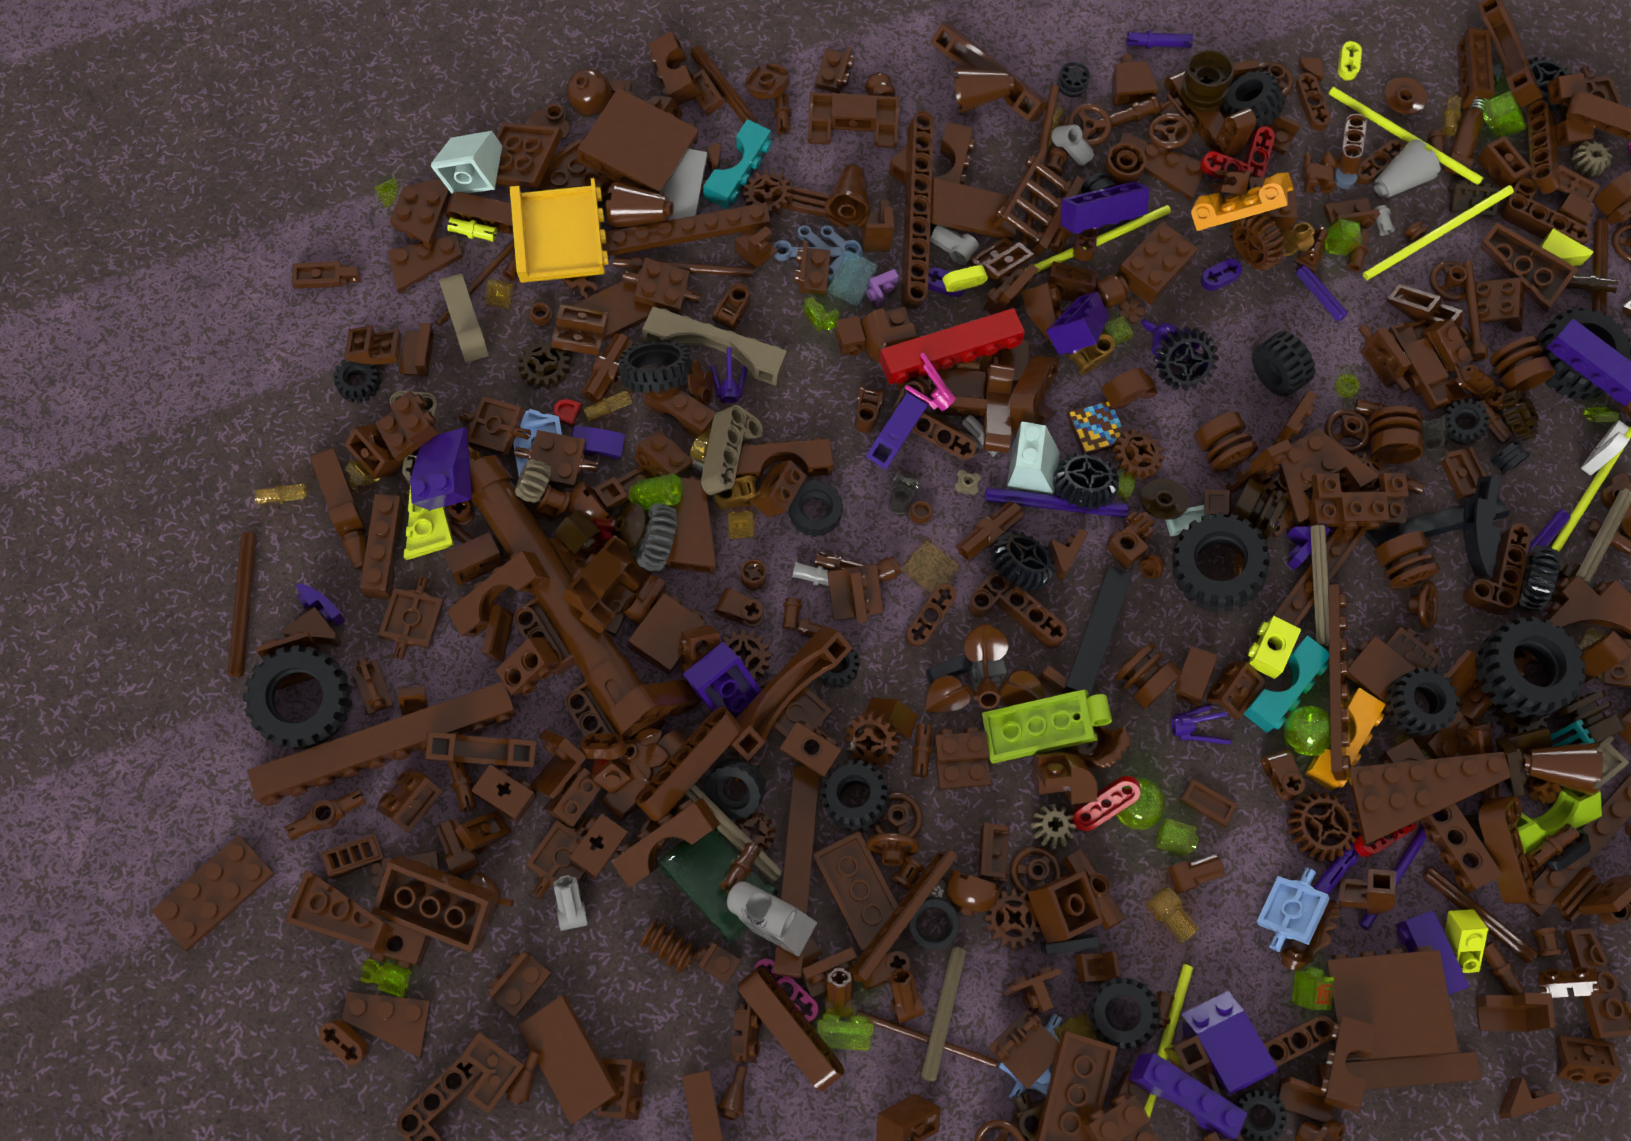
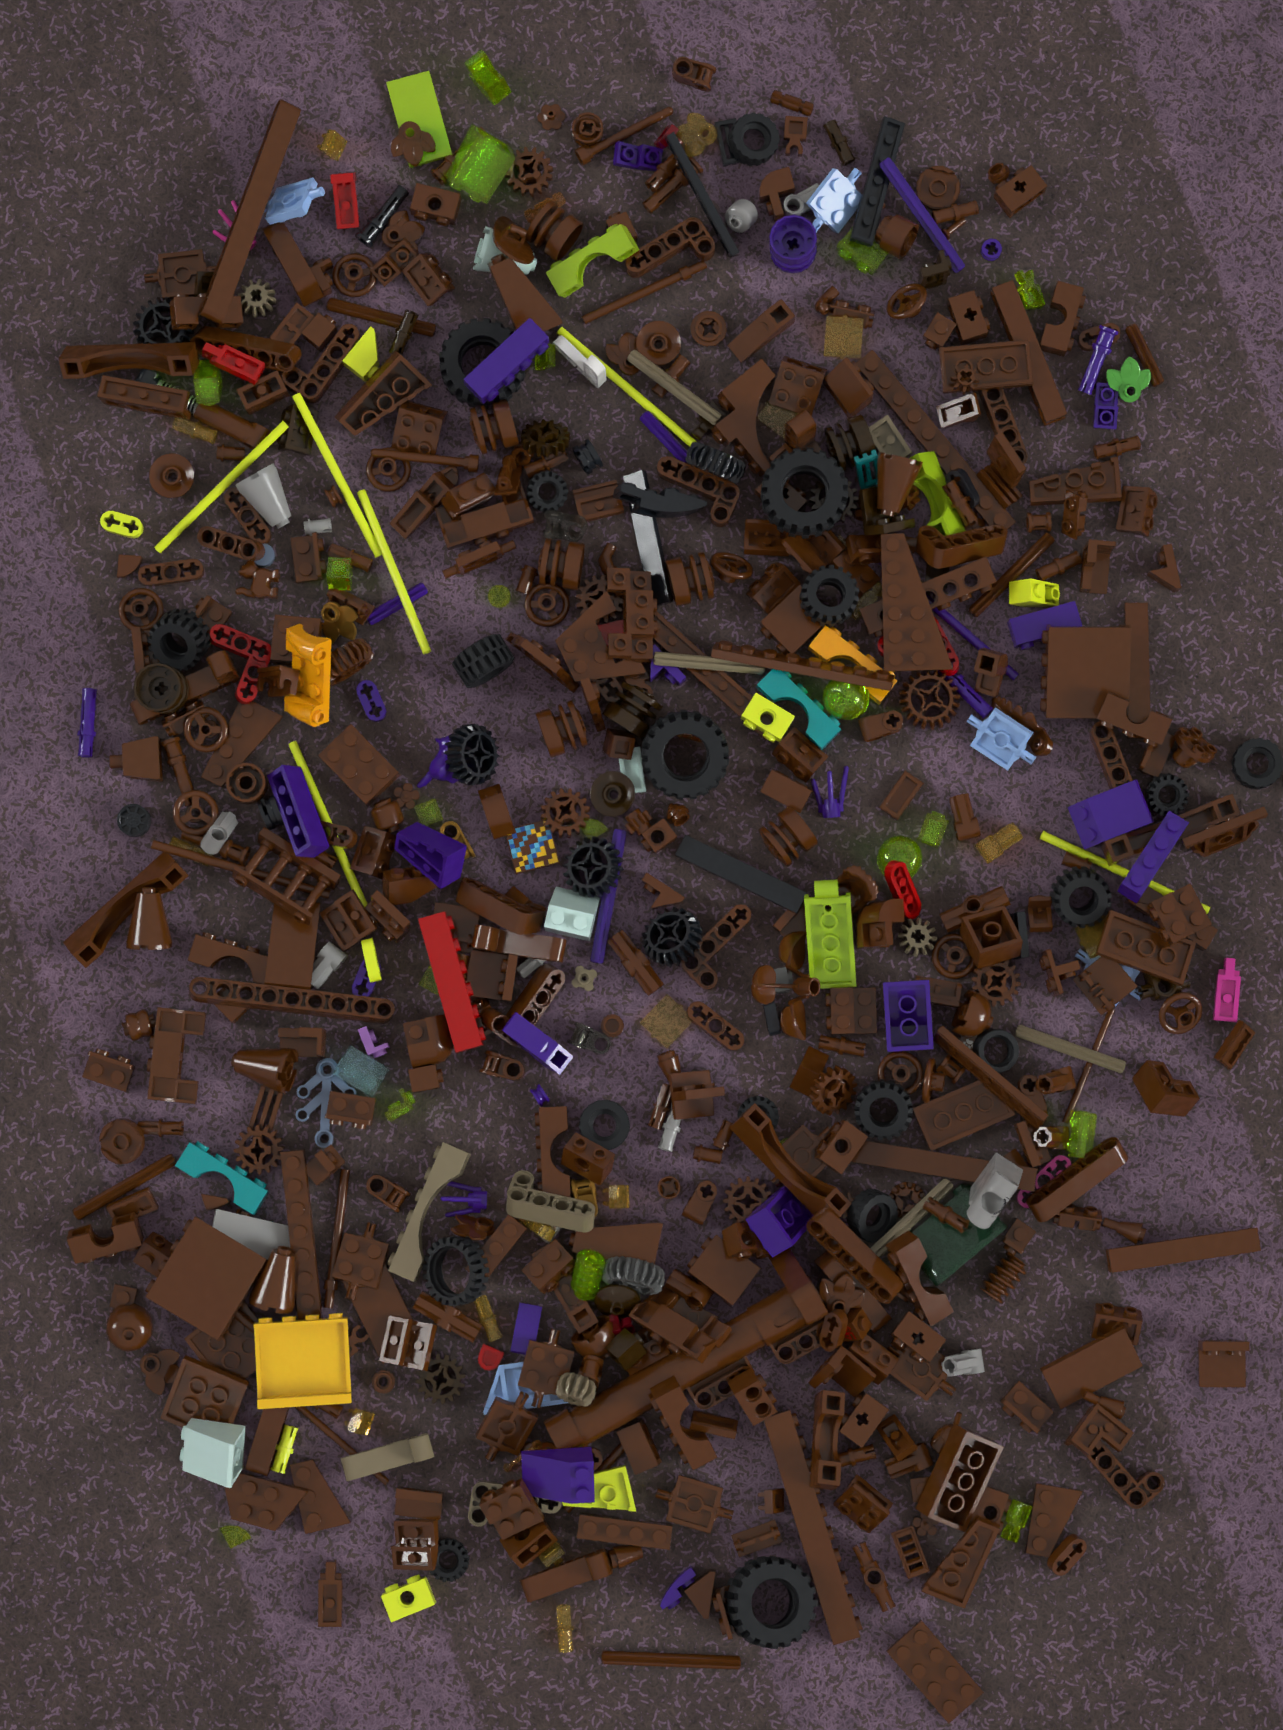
camera: 75 degrees left, 15 degrees up
(310, 334) = (398, 1608): none -> neon yellow brick
(841, 444) = (539, 1095): none -> dark purple bush
(941, 395) = (507, 999): dark pink plant -> none
(964, 816) = (908, 1015): none -> dark purple slope
(1313, 989) = (1069, 733): clear neon green brick -> none
(1352, 286) = (393, 570): none -> neon yellow piece
(1463, 635) = (763, 538): none -> reddish brown bracket
(1531, 132) = (234, 362): none -> red hinge

